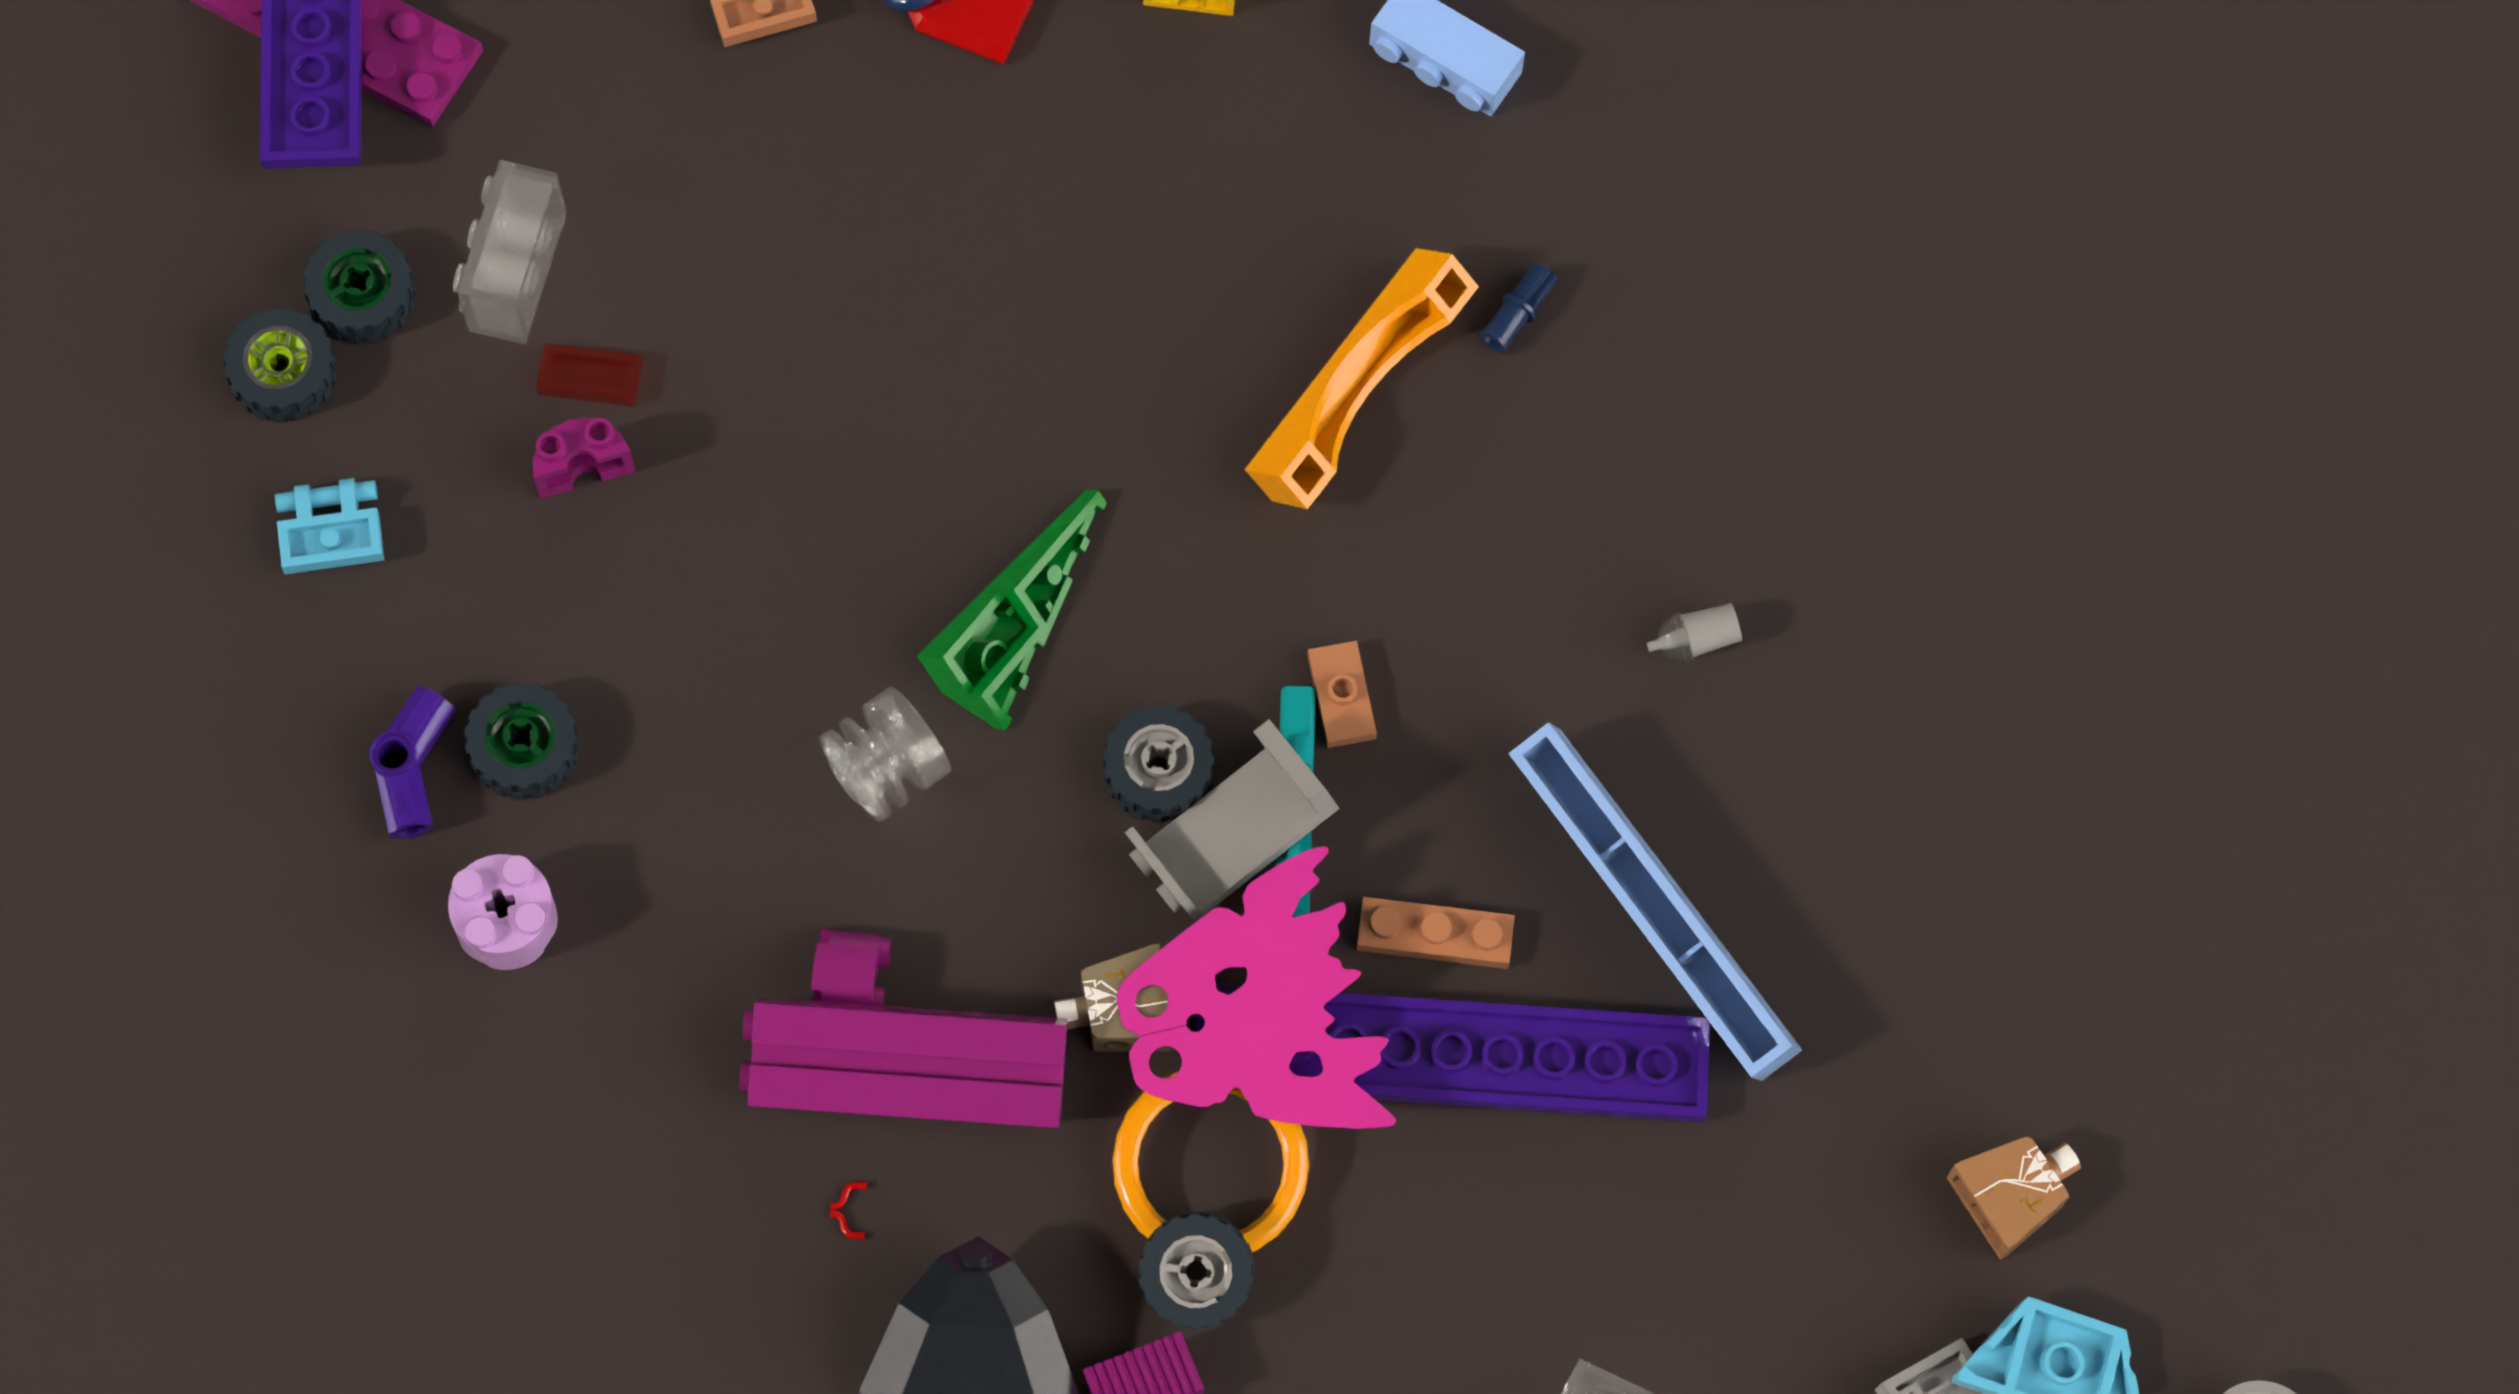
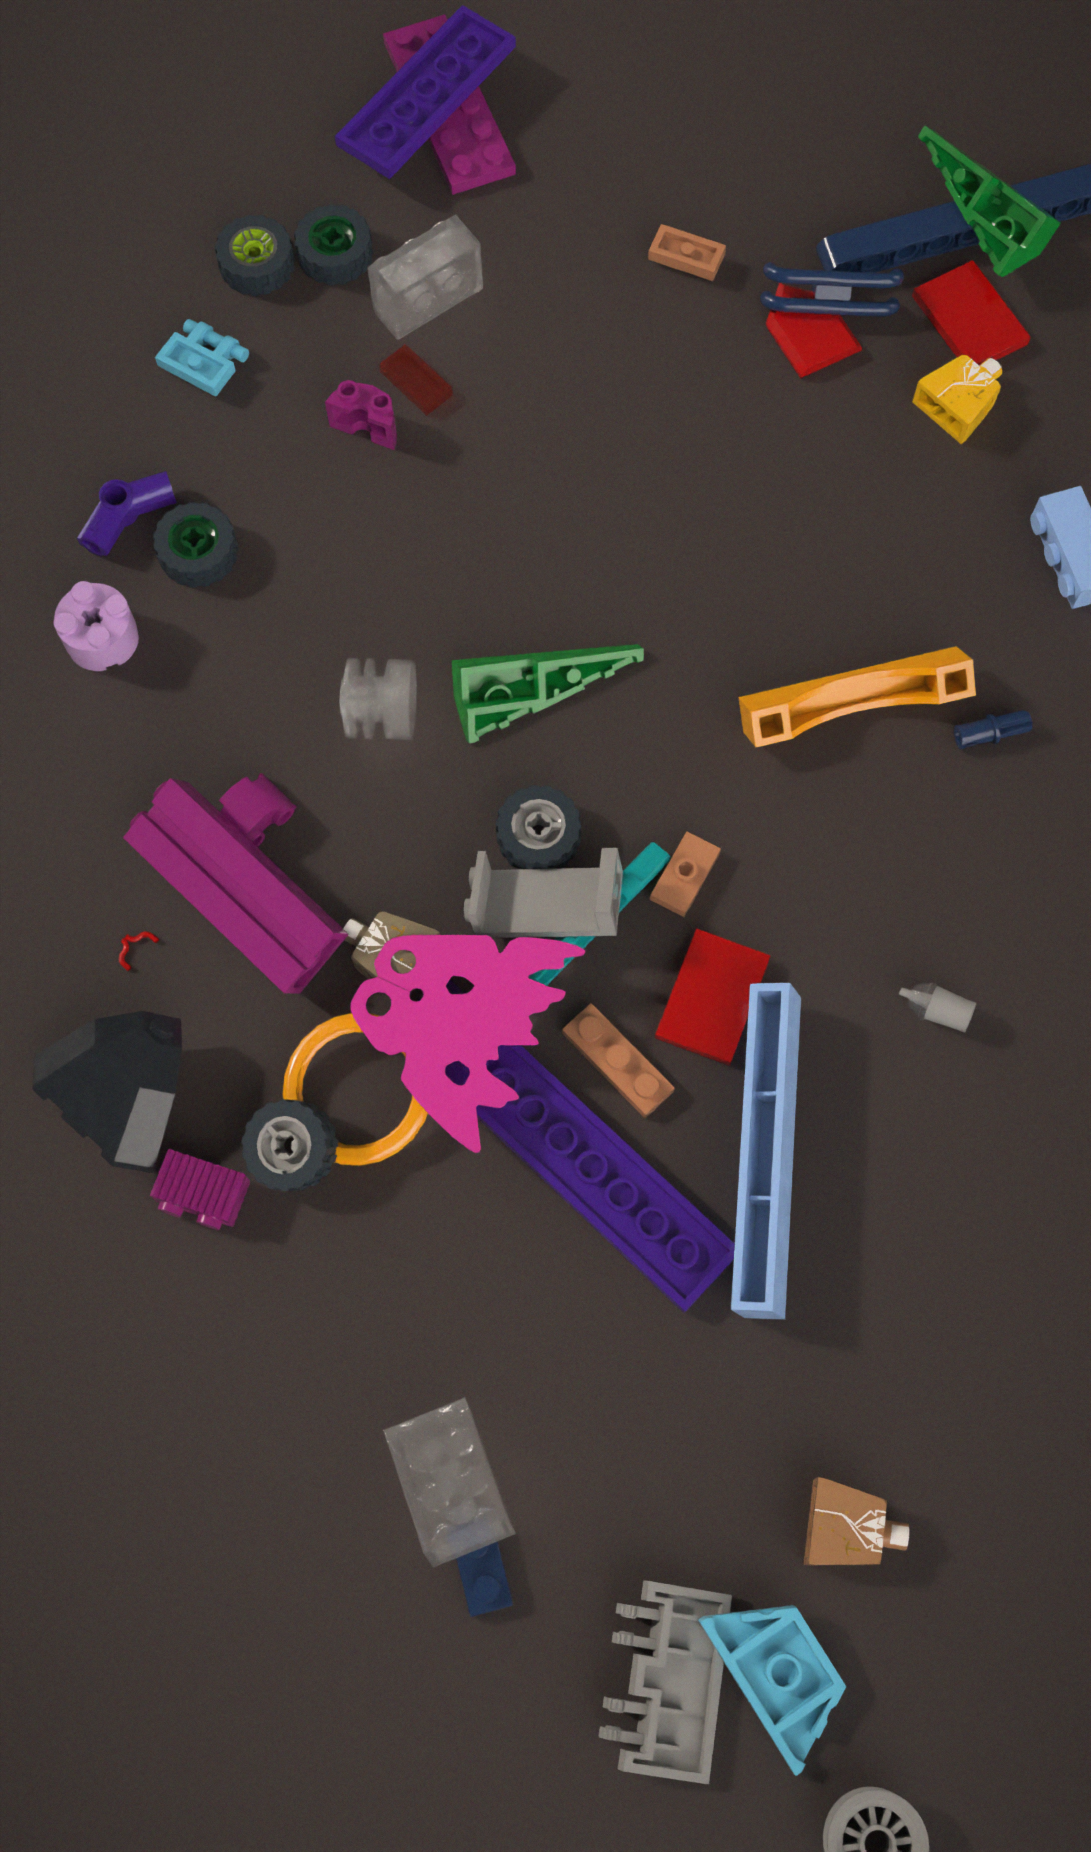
camera: 45 degrees right, 0 degrees up
(1473, 796) = (711, 997): none -> red tile

